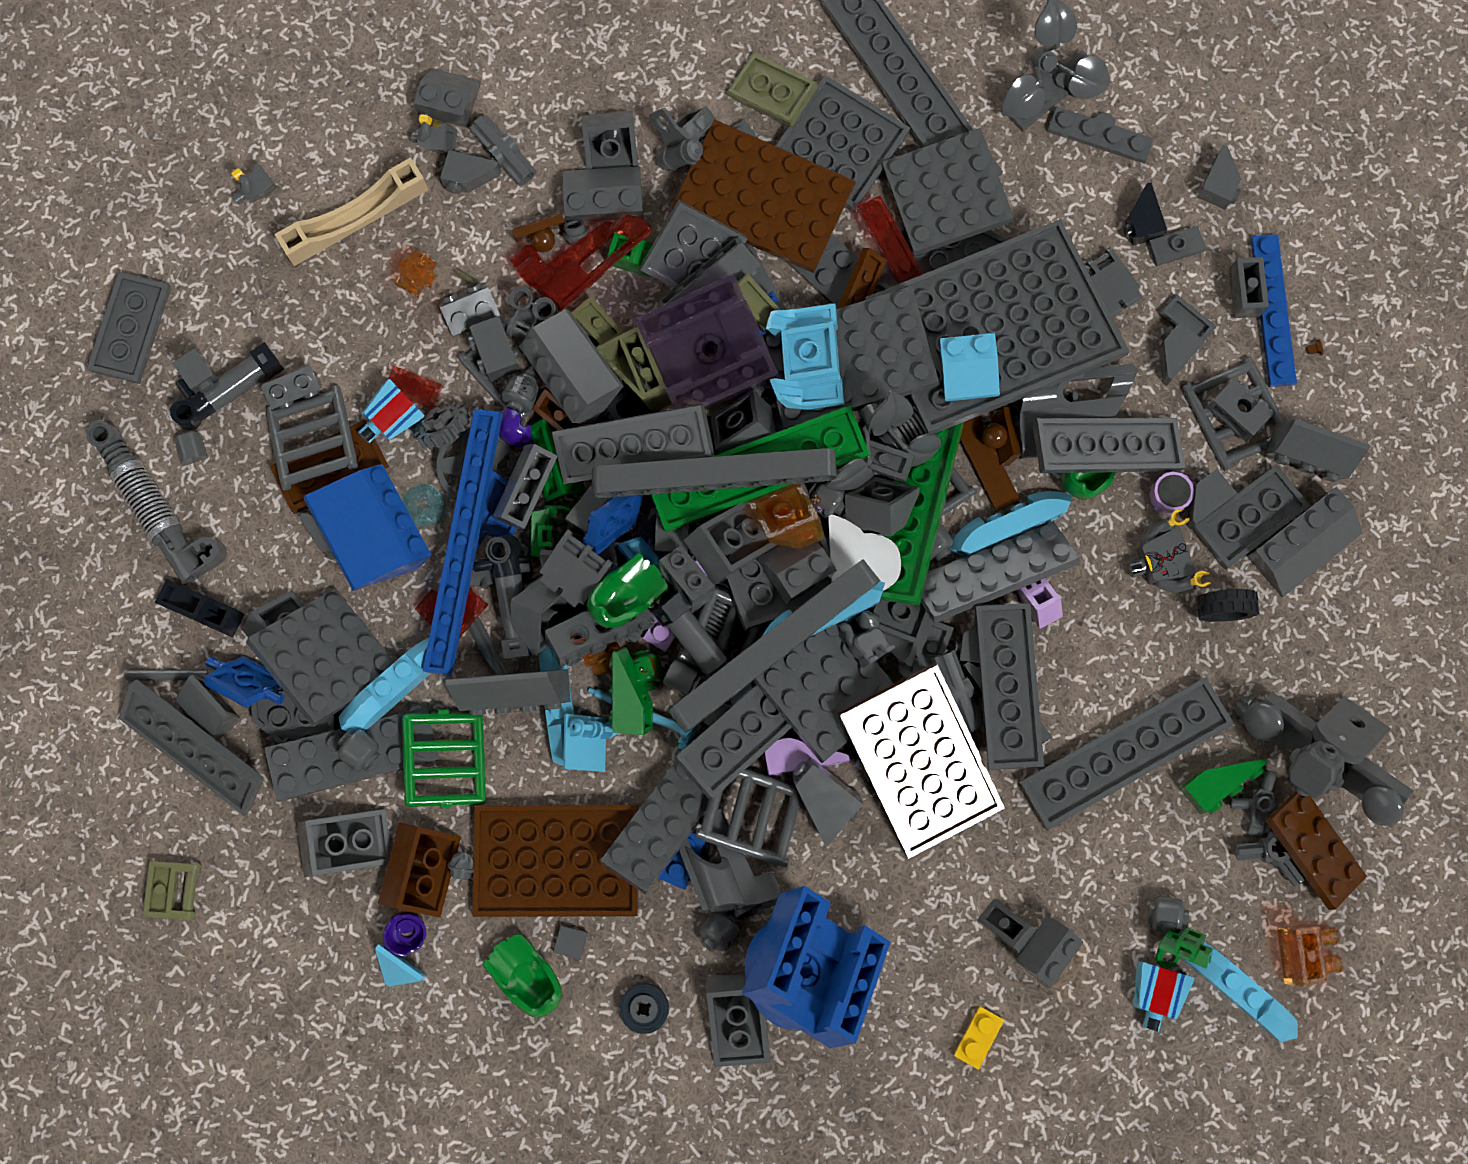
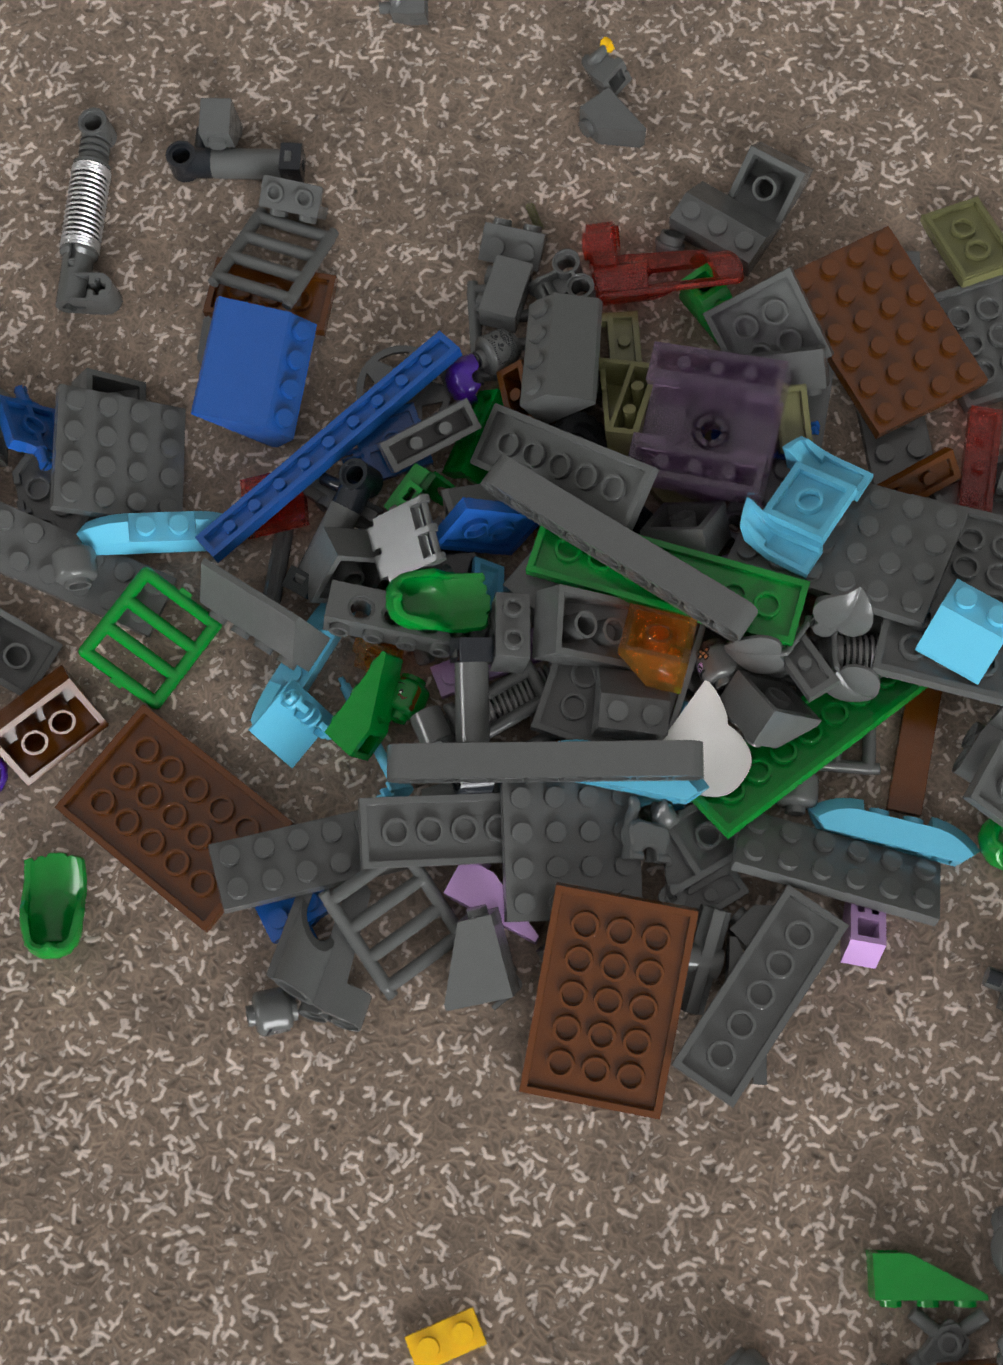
camera: 45 degrees right, 5 degrees down
(129, 328) = (198, 55): dark grey plate -> none
(190, 448) = (164, 194): dark grey brick -> none
(199, 608) = (52, 338): black slope -> none
(313, 235) = (531, 91): tan arch -> none
(388, 413) = (360, 284): torso -> none
(416, 273) = (489, 178): clear orange brick -> none
(416, 388) = (404, 280): clear red plate -> none
(434, 500) = (321, 404): clear light blue gear -> none
(442, 425) = (399, 329): dark grey gear -> none
(446, 97) = (645, 44): dark grey slope -> none
(461, 866) = (84, 751): dark grey plate -> none
(503, 149) = (660, 125): dark grey piece -> none
(540, 232) = (635, 220): reddish brown tile -> none
(570, 942) = (125, 907): dark grey tile -> none
(651, 1002) = (152, 1031): black wheel -> none
(682, 138) = (840, 224): dark grey piece -> none
(736, 1024) = (219, 1114): dark grey slope -> none
(812, 971) = (348, 1147): blue piece -> none
(1003, 436) = (951, 737): reddish brown tile -> none
(1007, 926) = (567, 1255): dark grey slope -> none
(1049, 951) = (586, 1310): dark grey slope -> none
(1126, 753) = (837, 1166): dark grey plate -> none

